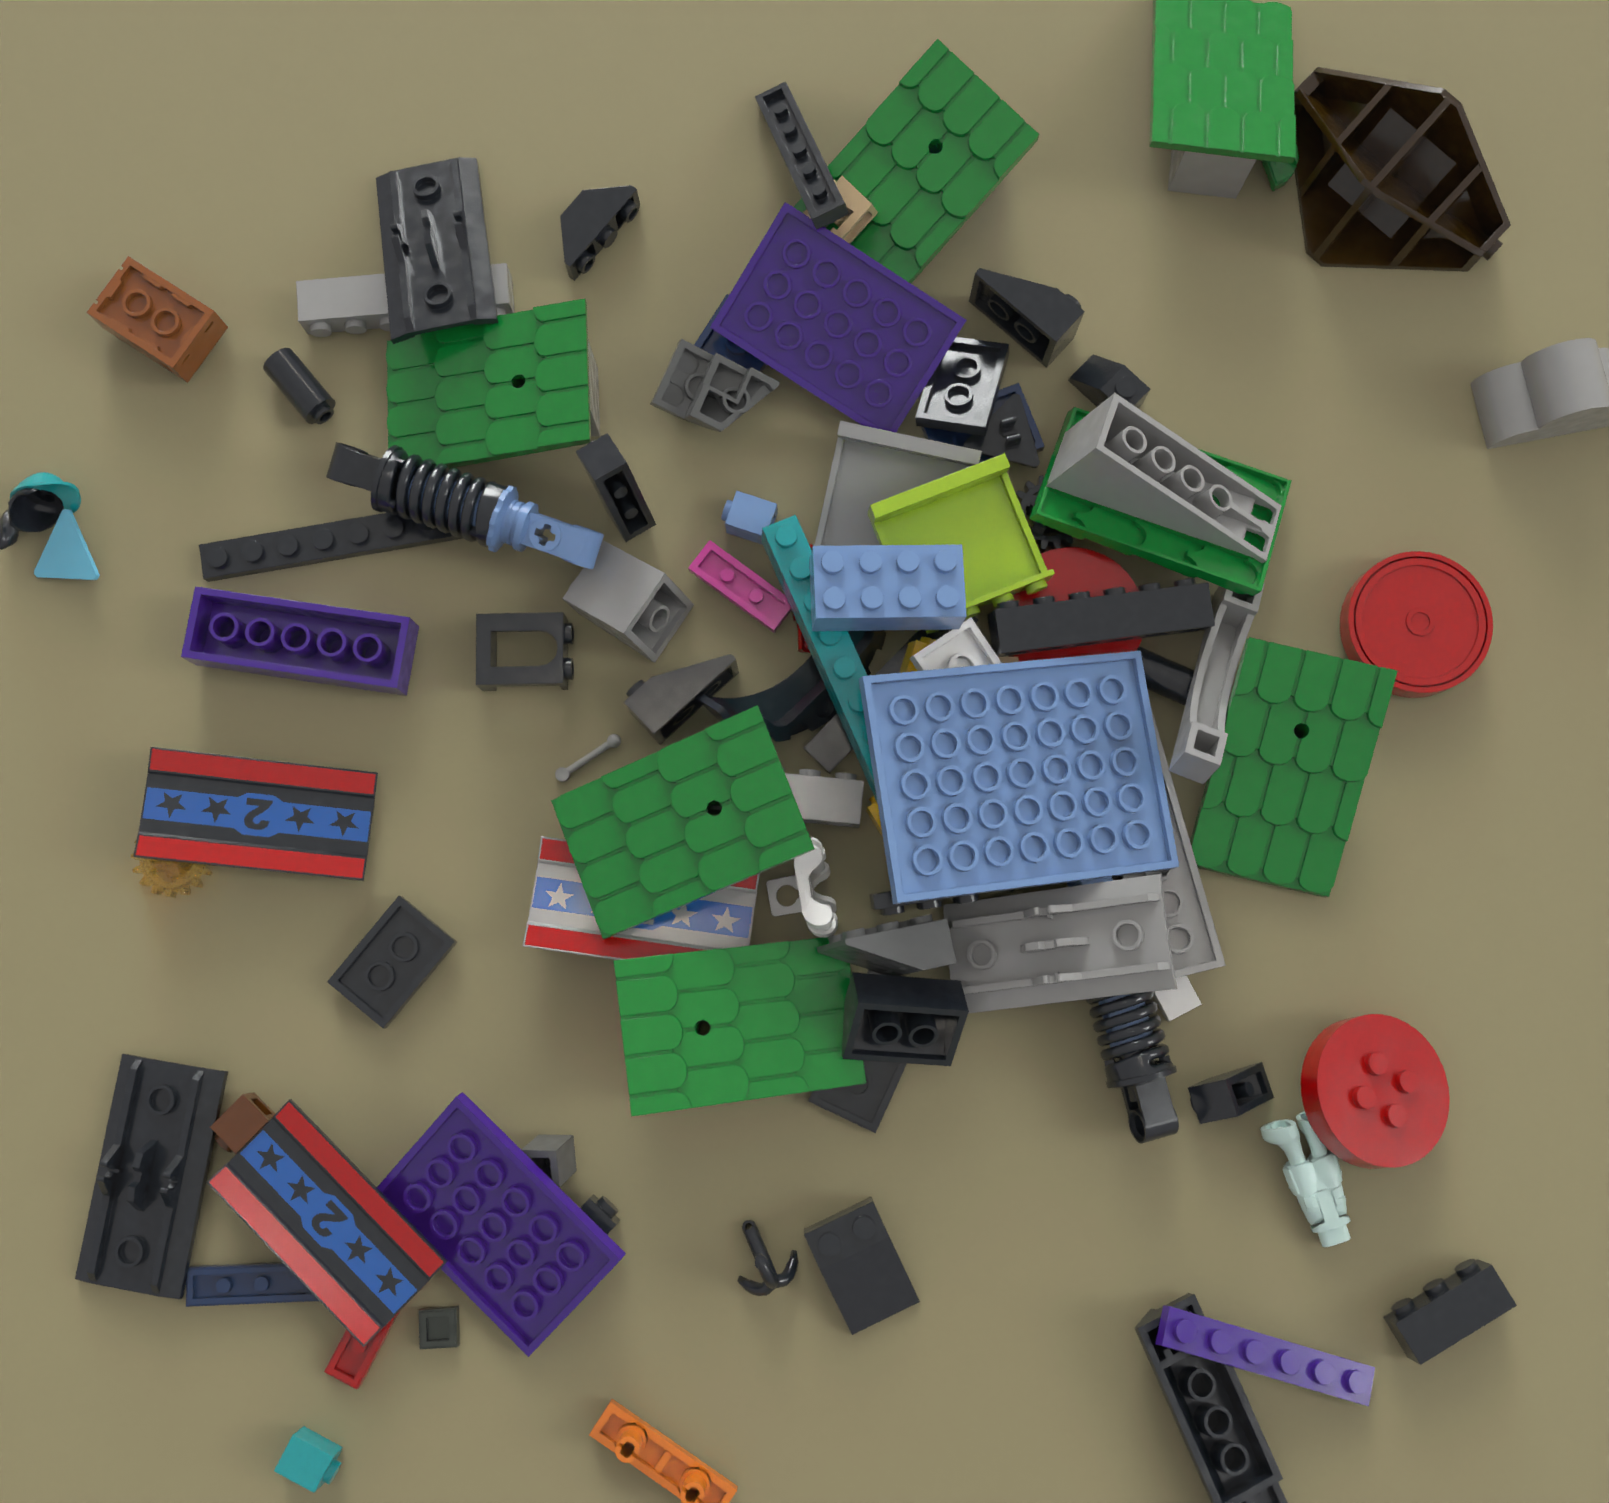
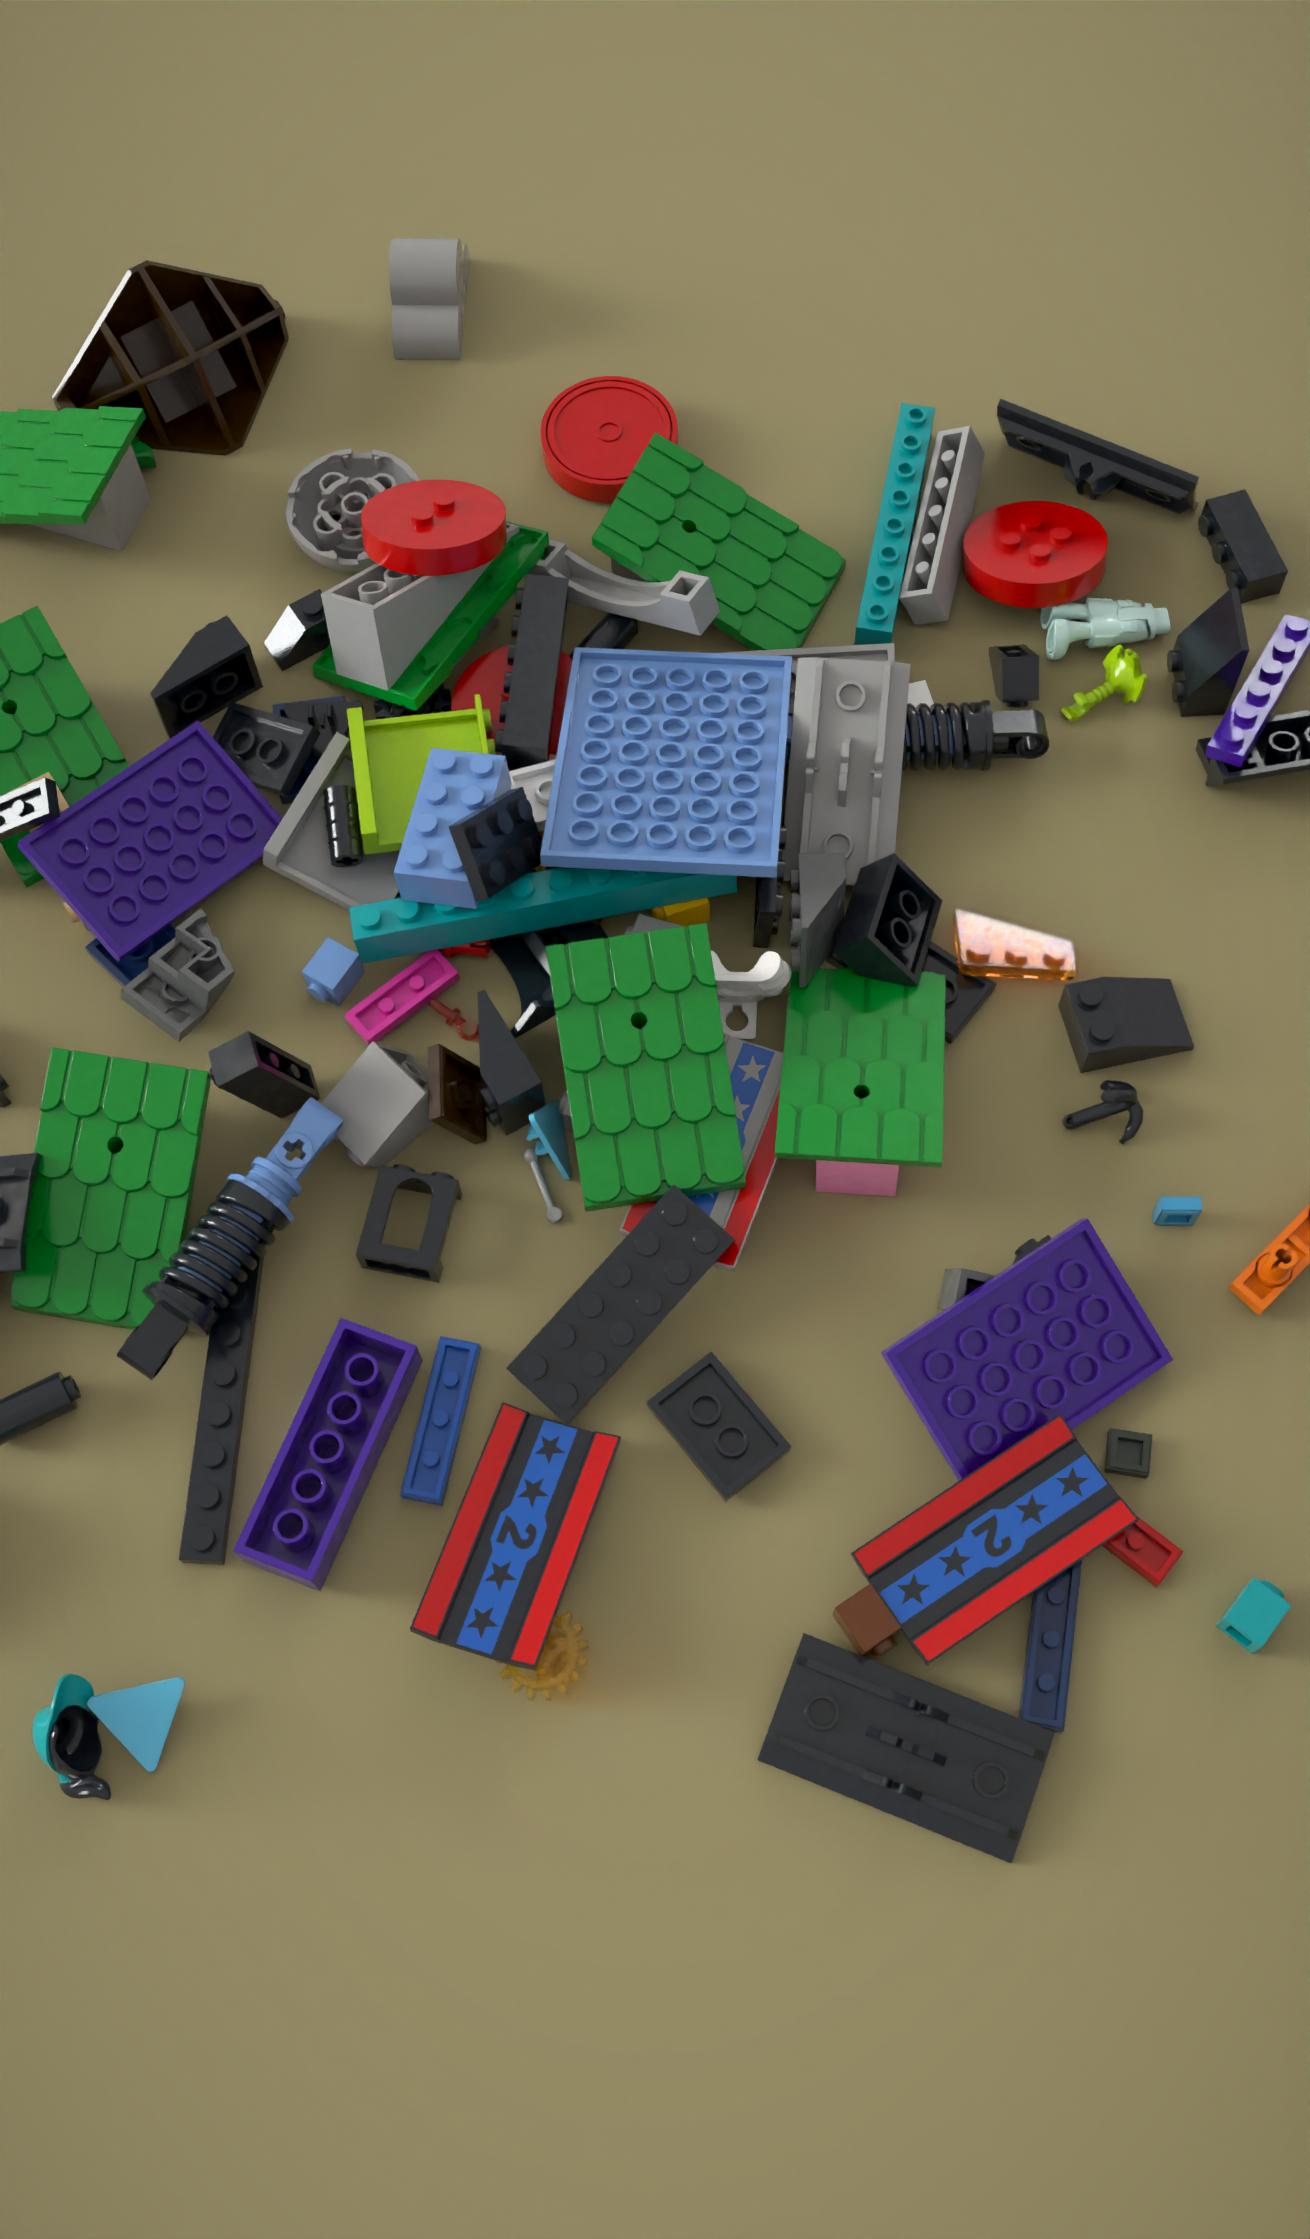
camera: 75 degrees left, 15 degrees down
(357, 725) = (440, 1421): none -> blue tile
(476, 854) = (620, 1304): none -> black plate
(627, 749) = (549, 1127): none -> medium azure piece
(642, 656) = (455, 1094): none -> dark brown tile
(673, 1341) = (1177, 1210): none -> dark azure tile
(734, 635) = (453, 1017): none -> clear red hand
(869, 633) = (498, 843): none -> black plate
(891, 482) = (343, 826): none -> black axle
(912, 1140) = (1007, 950): none -> clear orange wing
(1230, 479) = (434, 527): none -> red brick
(1251, 1207) = (1121, 676): none -> lime piece
(1278, 365) = (340, 486): none -> light grey brick
(1283, 1294) = (1209, 658): none -> black slope
(1379, 939) = (895, 525): none -> teal brick
(1391, 988) = (941, 526): none -> light grey brick
(1505, 1139) = (1097, 460): none -> black hinge

